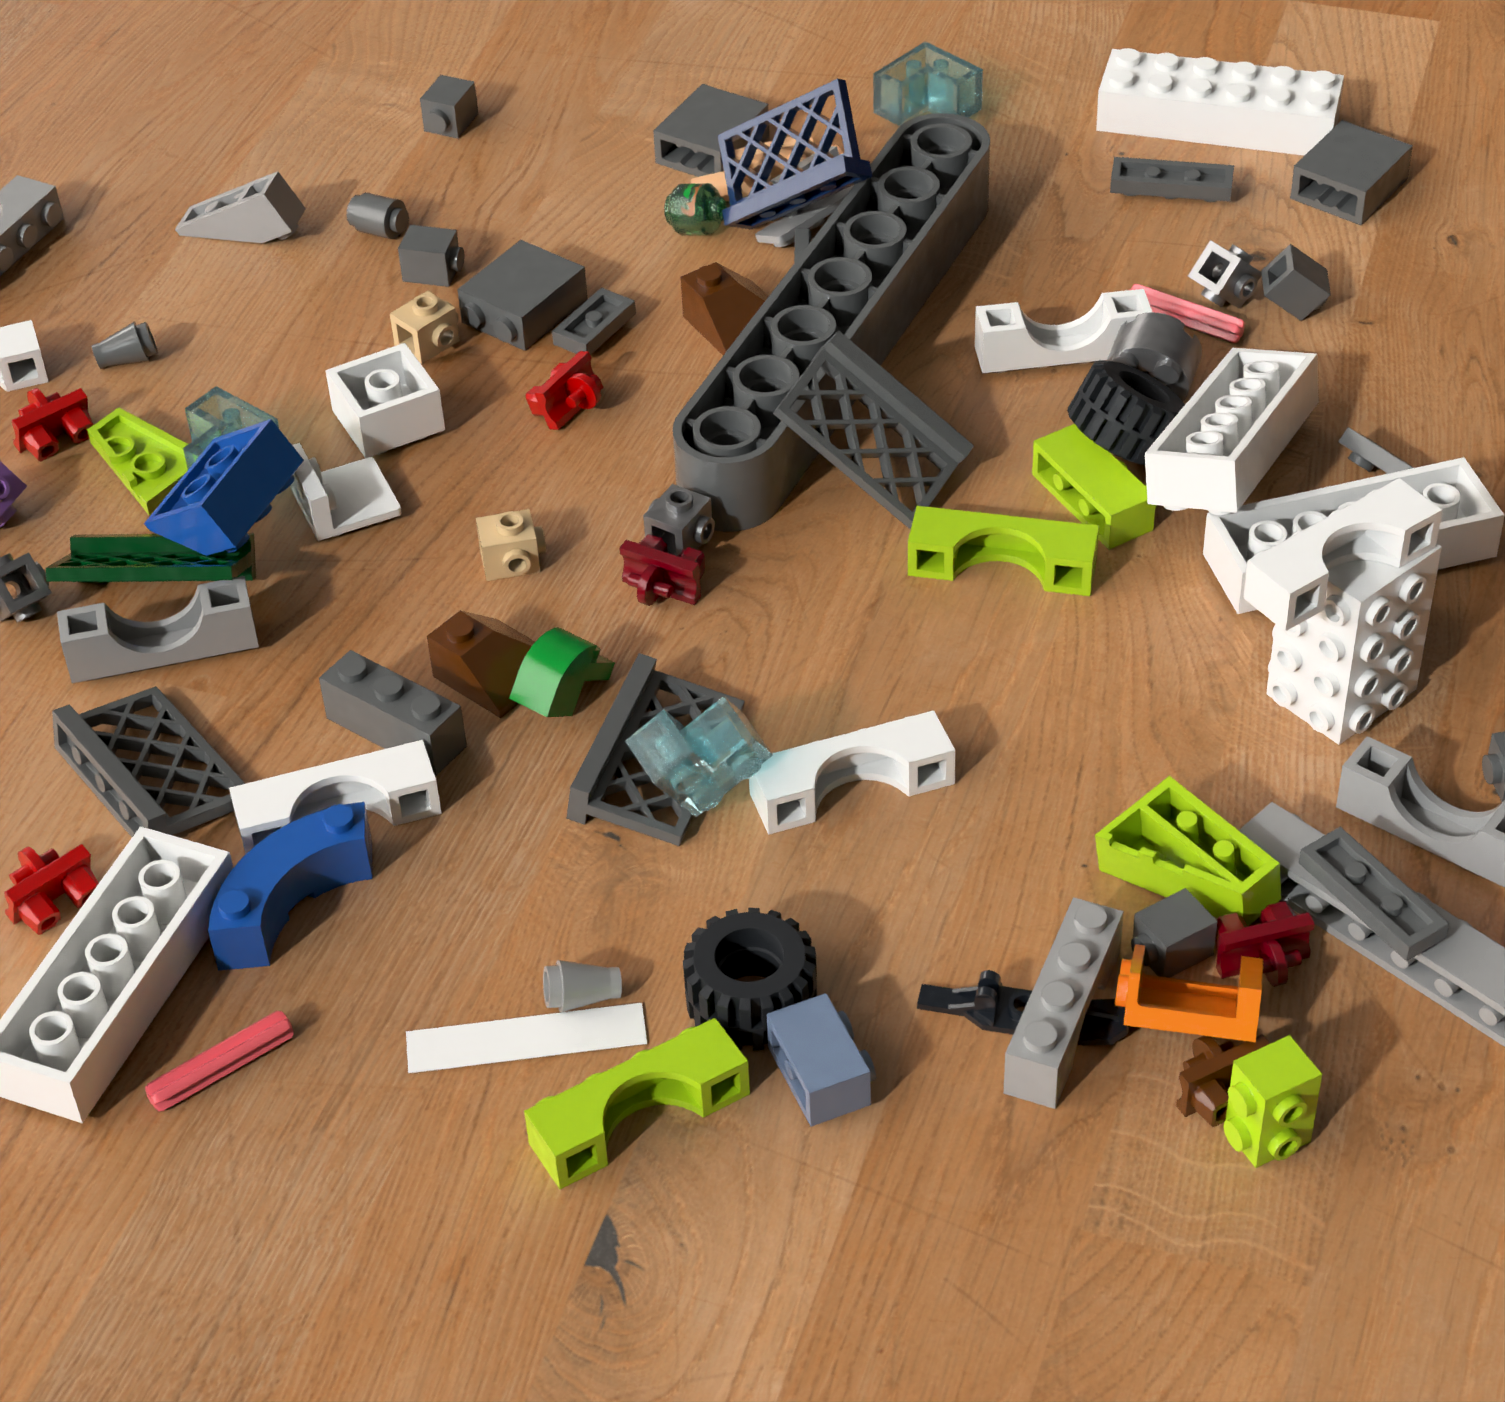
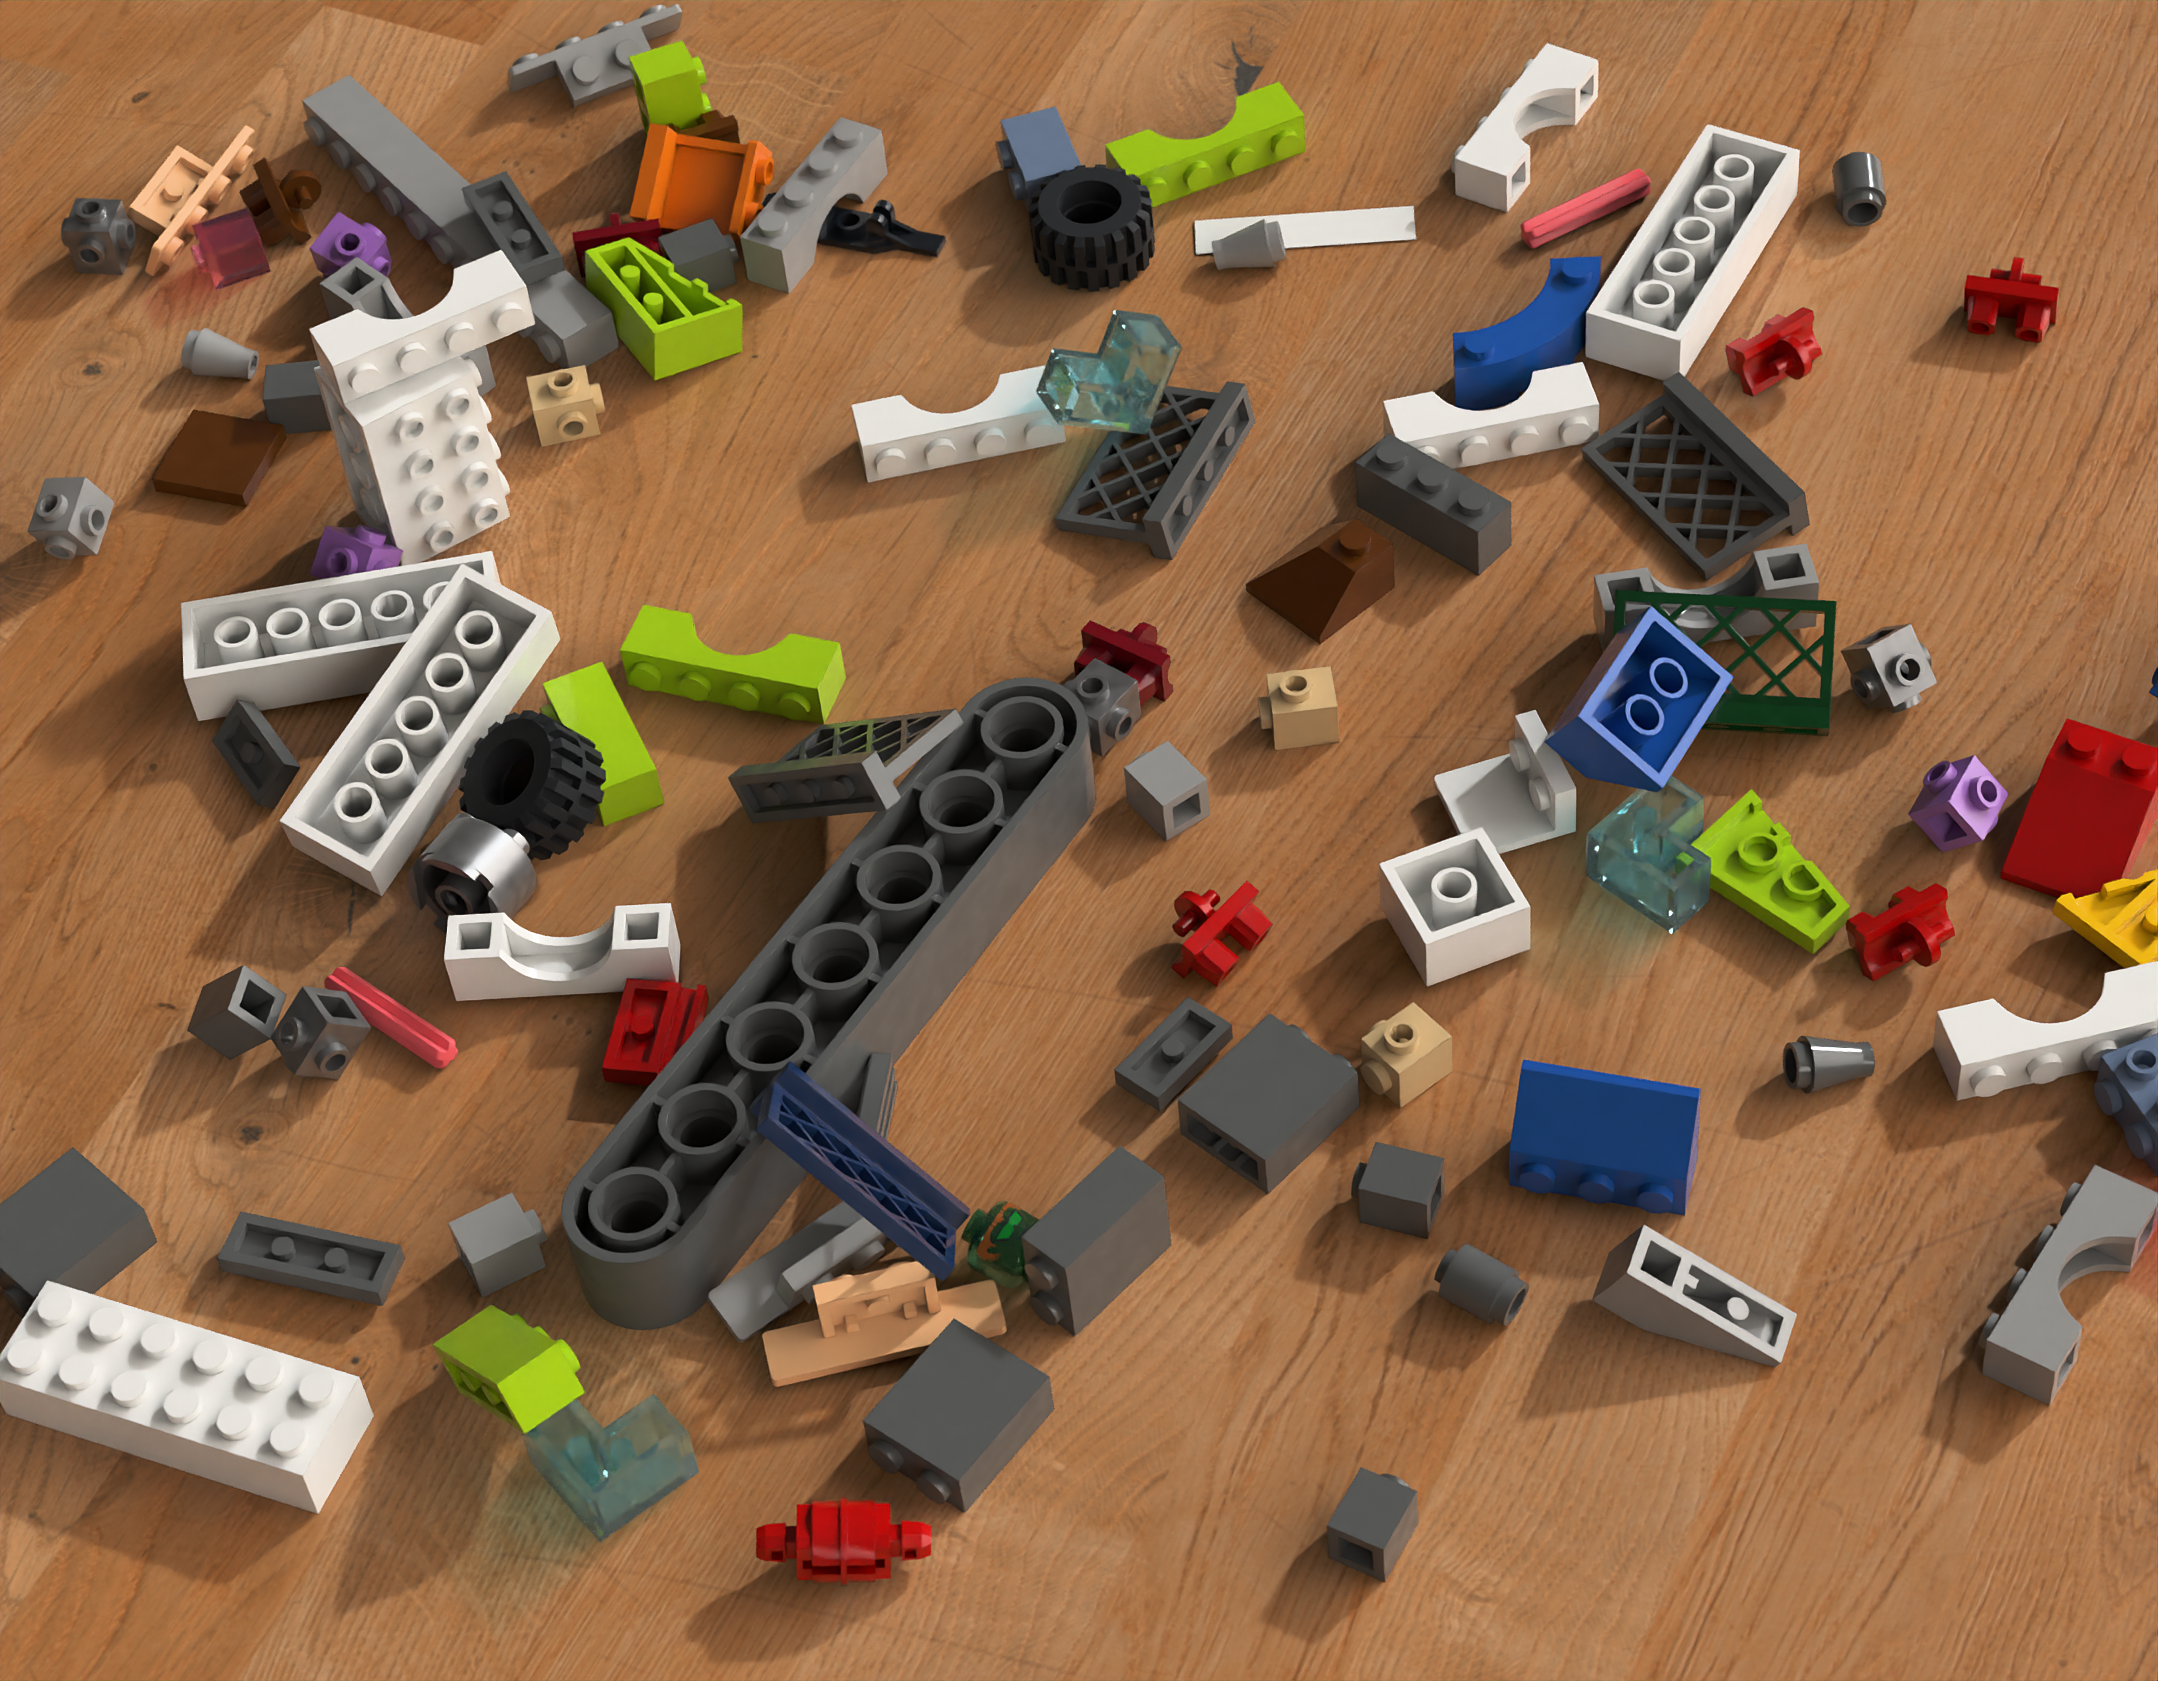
camera: 170 degrees left, 5 degrees up
(240, 1199) = (1549, 92): none -> white arch
(286, 277) = (1604, 1137): none -> blue slope
(556, 671) = (1245, 524): green brick -> none
(615, 478) = (1166, 790): none -> light grey brick
(629, 192) = (1096, 1241): none -> dark grey brick
(719, 303) = (980, 1068): reddish brown slope -> none
(770, 69) = (843, 1541): none -> red piece
(965, 298) = (651, 1028): none -> red plate
(1002, 98) = (510, 1367): none -> lime brick
(1045, 188) = (499, 1243): none -> light grey brick
(1251, 769) = (565, 405): none -> tan brick
(1396, 1211) = (599, 62): none -> light grey bracket

